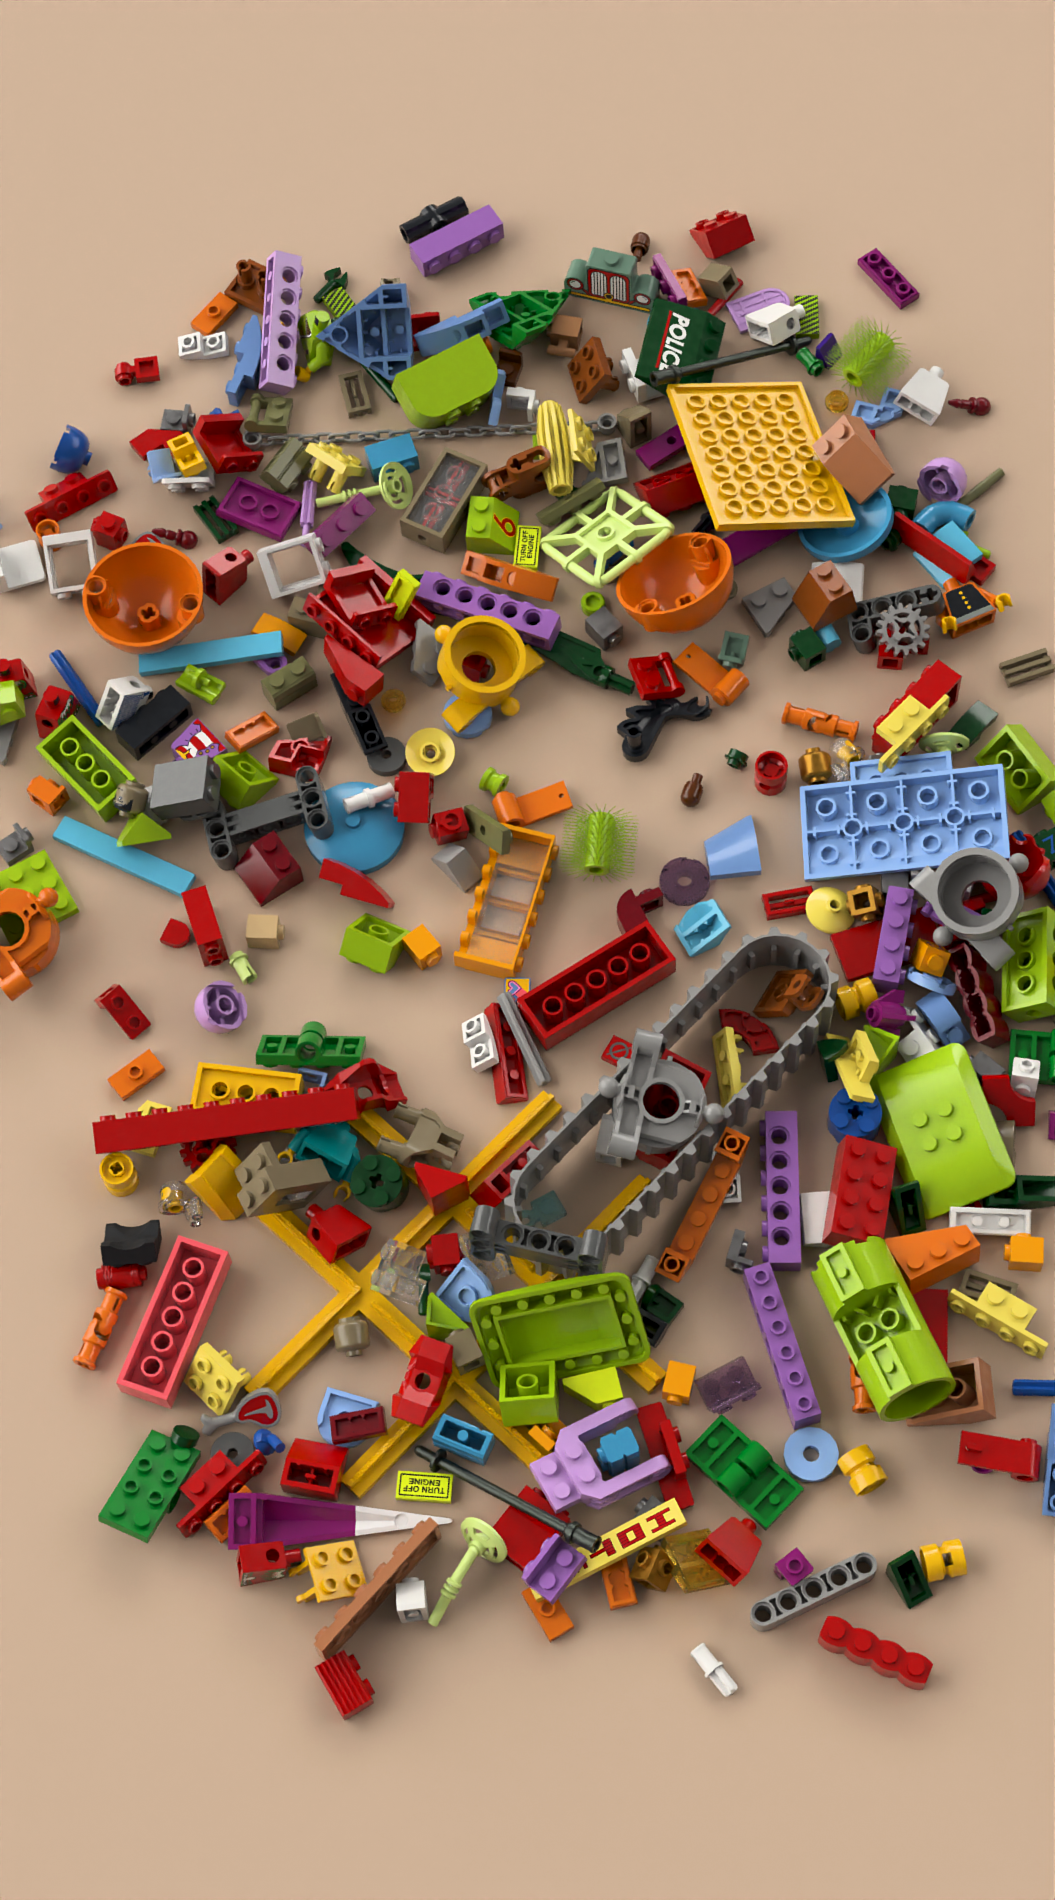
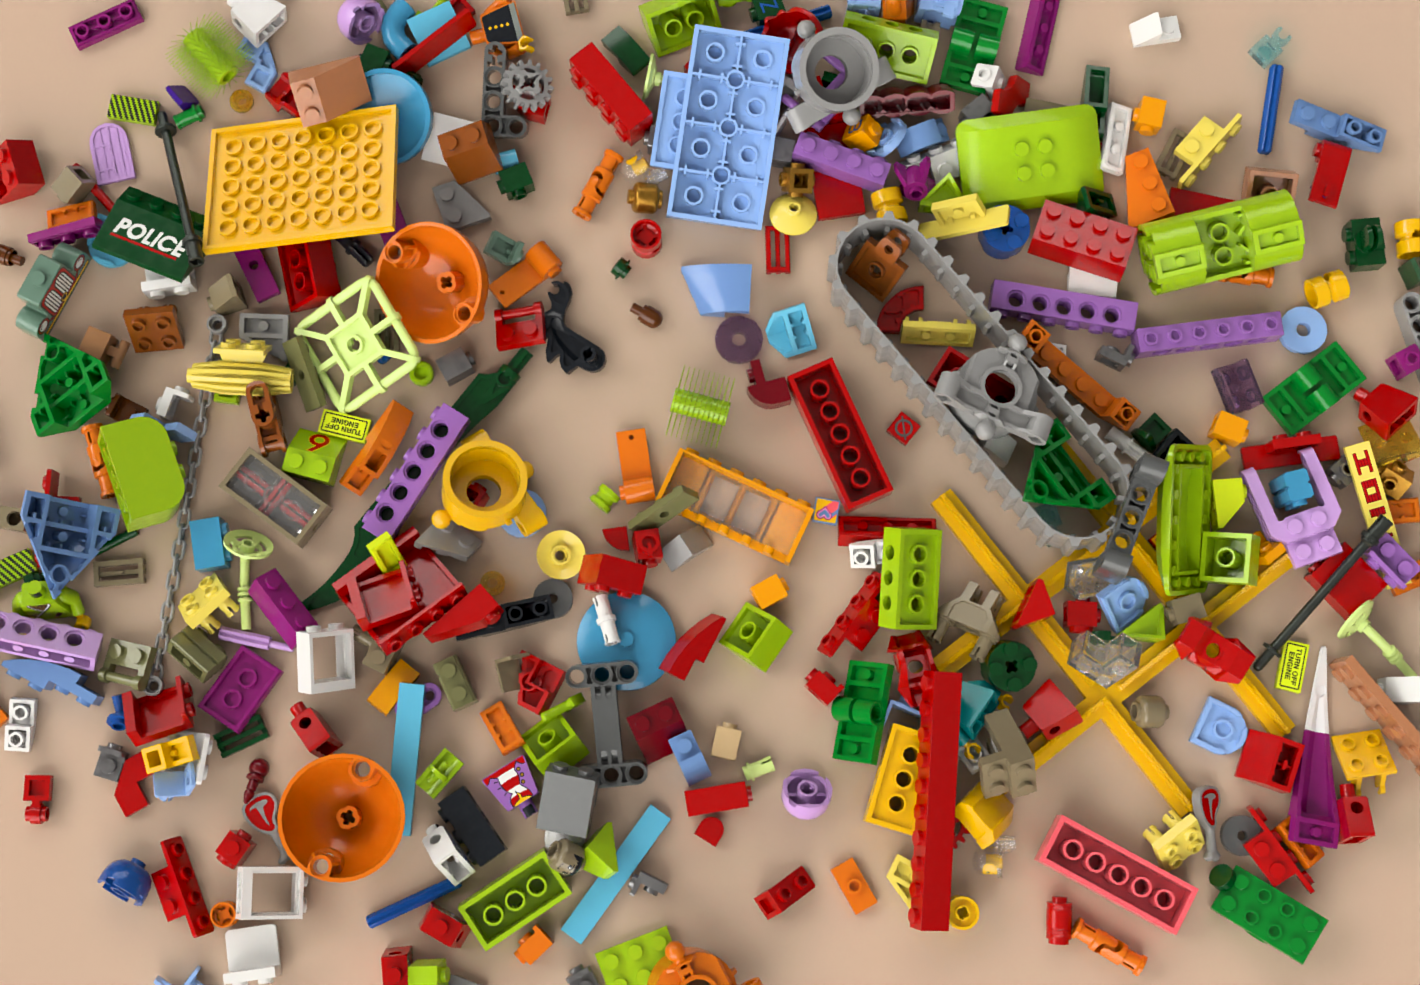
camera: 90 degrees left, 15 degrees up
(117, 884) = (652, 884): none -> flat silver bracket
(131, 1244) = (1035, 907): black brick -> none
(237, 898) = (690, 757): none -> medium blue brick
(267, 1442) = (1236, 801): blue plate -> none
(284, 786) = (566, 706): none -> lime bar
(333, 1012) = (822, 686): none -> red brick
(358, 1425) = (1236, 716): dark red plate -> none
(406, 1039) = (858, 621): none -> red bracket
(445, 1084) = (910, 578): none -> lime brick
(455, 330) = (78, 453): medium blue slope -> none
(456, 799) = (617, 538): none -> red tile
(463, 1439) = (1261, 623): dark azure brick -> none
(497, 1184) = (1017, 547): red slope -> none
(524, 1039) = (879, 511): light grey axle -> none
(586, 1186) = (1058, 480): none -> green wedge
(774, 322) = (139, 139): white torso -> none
(829, 1051) = (946, 238): dark green tile -> none
(906, 725) = (634, 102): light yellow bracket -> none
(925, 1508) = (1364, 244): none -> dark green brick

